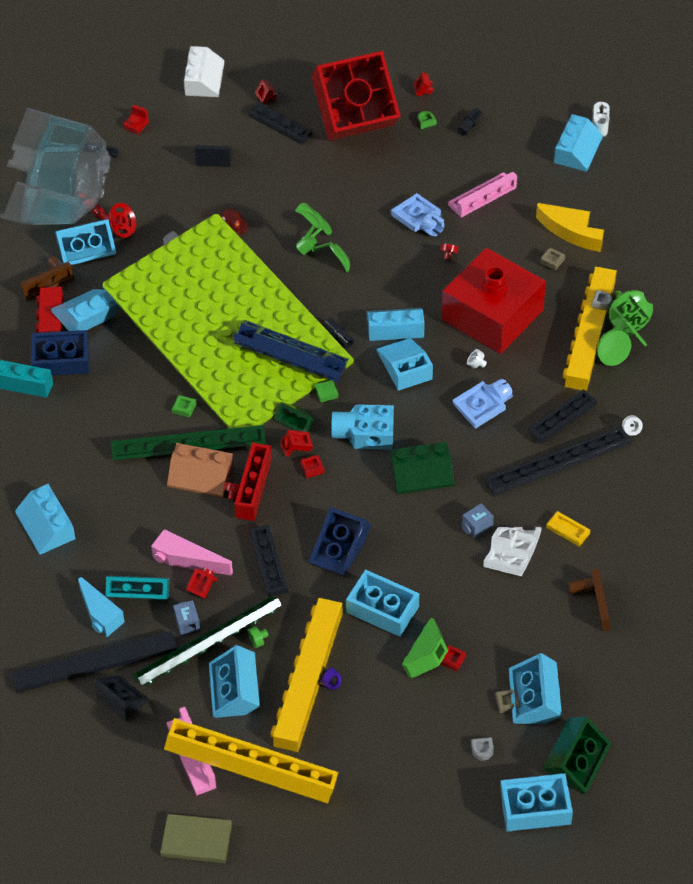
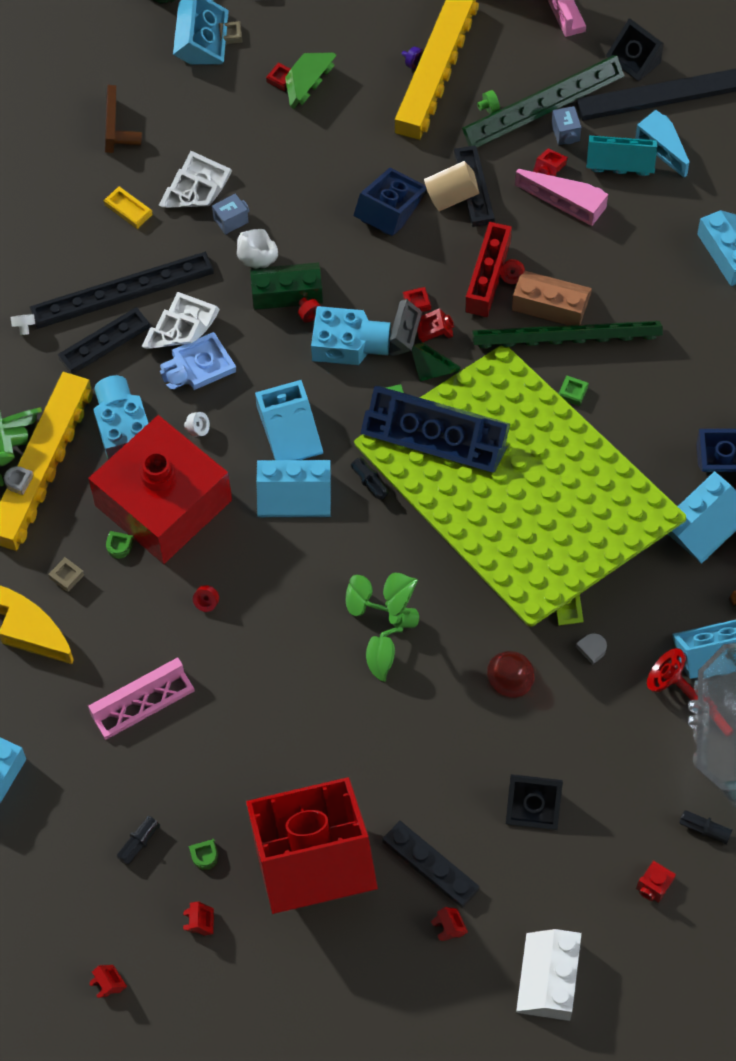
camera: 175 degrees left, 10 degrees up
(234, 683) = (515, 56): medium azure slope -> none
(287, 551) = (452, 186): none -> tan brick
(320, 432) = (404, 328): none -> dark grey panel
(382, 603) = (350, 121): medium azure brick -> none
(399, 443) = (308, 309): none -> red tile
(419, 215) = (239, 660): light blue plate -> none
(449, 485) = (256, 249): none -> white hair
(473, 54) = (108, 979): none -> red tile
(501, 430) = (183, 322): none -> white slope
(534, 355) = (118, 413): none -> medium azure brick

